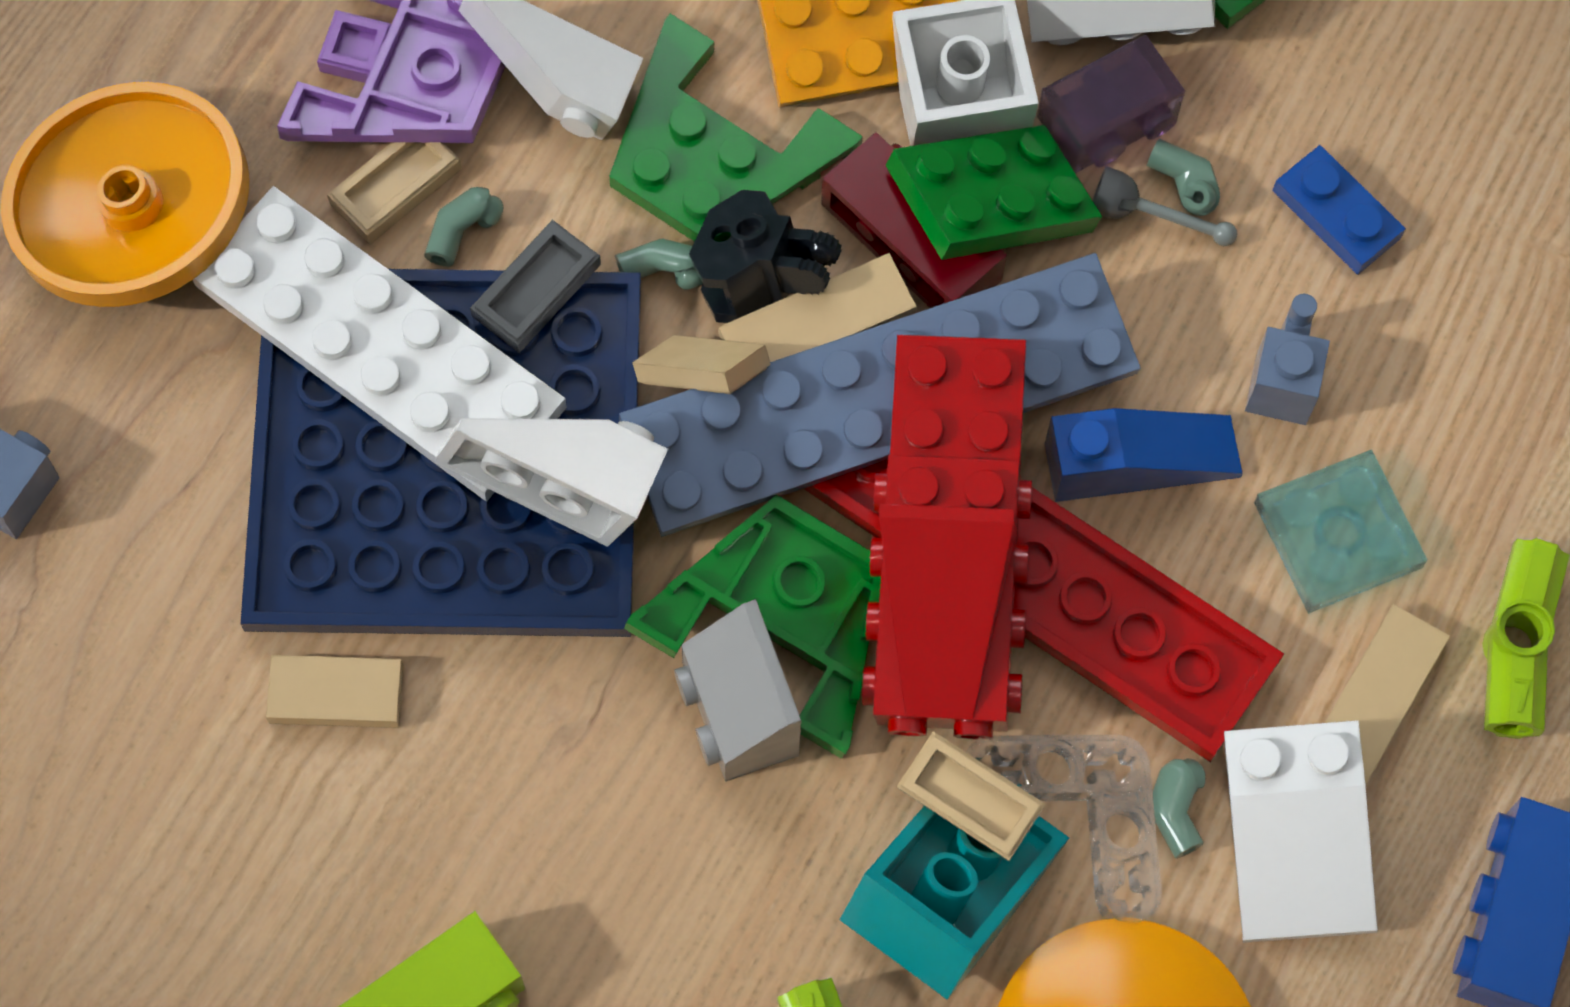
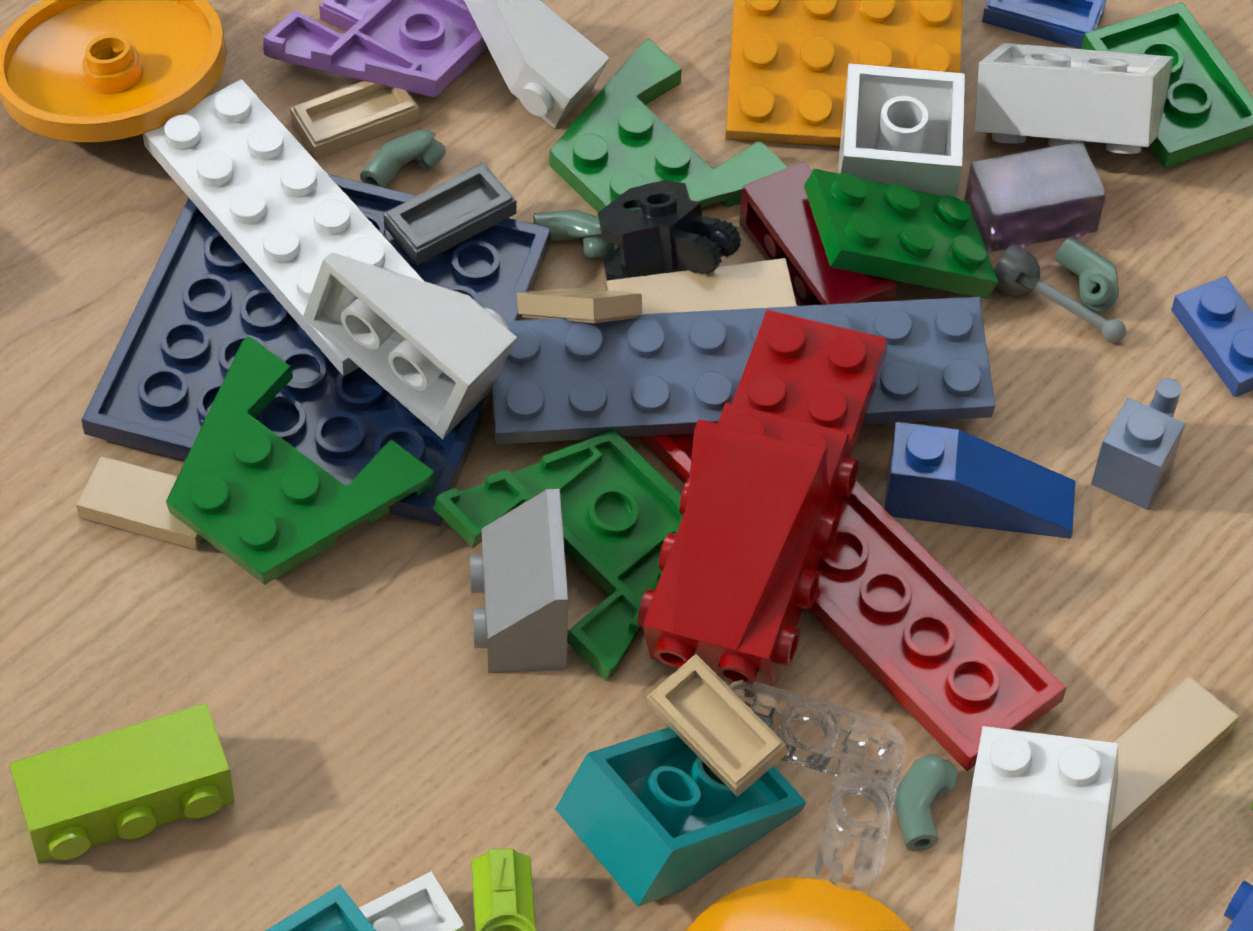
camera: 15 degrees right, 15 degrees down
(448, 660) = (262, 495): none -> green wing
(1340, 531) = (1155, 604): clear light blue plate -> none

